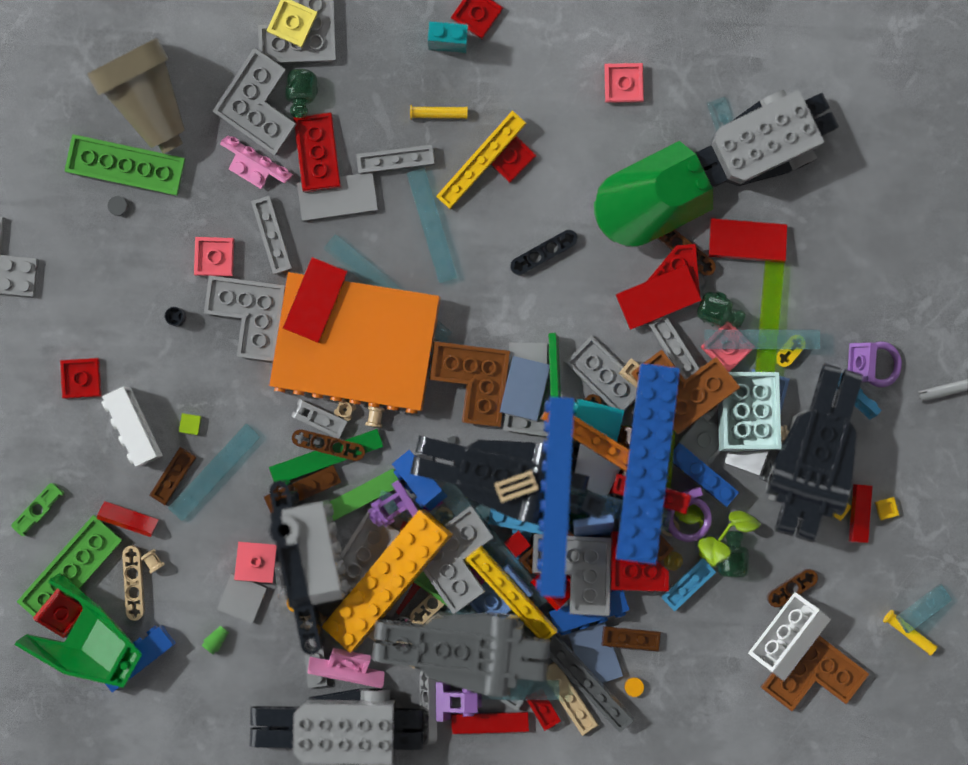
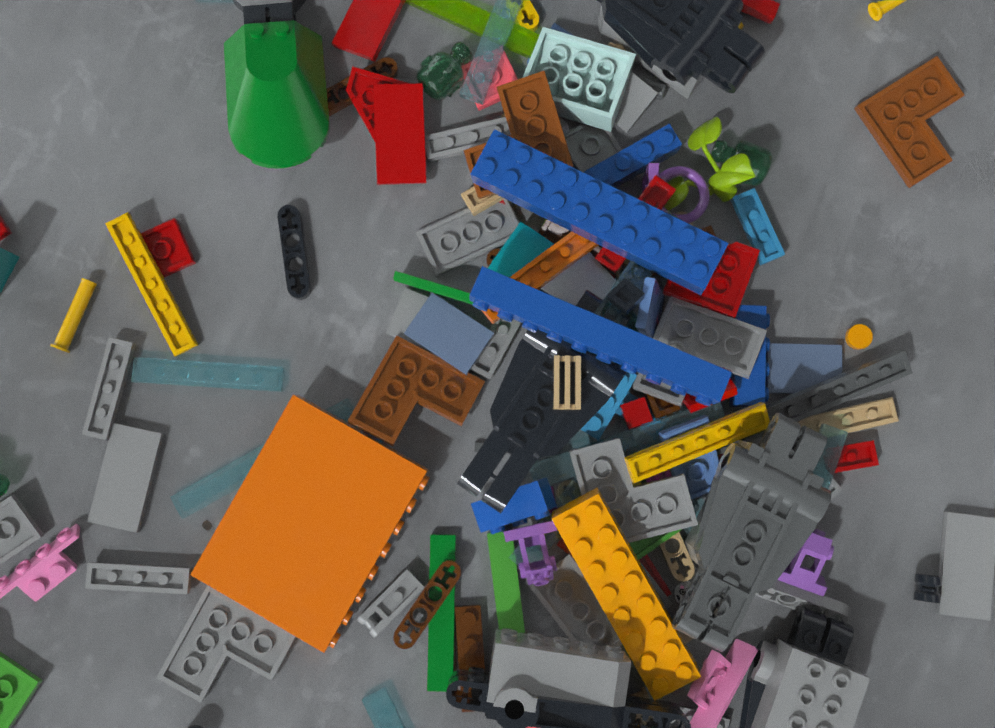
camera: 70 degrees left, 5 degrees down
(214, 256) = (136, 661): coral plate -> none
(315, 300) = (237, 553): red tile -> none
(317, 152) = (61, 482): red tile -> none
(350, 408) = (399, 566): tan plate -> none
(375, 416) = (414, 531): tan bush -> none
(490, 723) = (846, 527): red tile -> none
(623, 82) = (131, 84): coral plate -> none
(631, 638) = (799, 319): reddish brown tile -> none
(673, 561) = (724, 232): clear yellow plate -> none
(789, 636) = (863, 127): white brick -> none
(801, 575) = (807, 98): reddish brown beam -> none

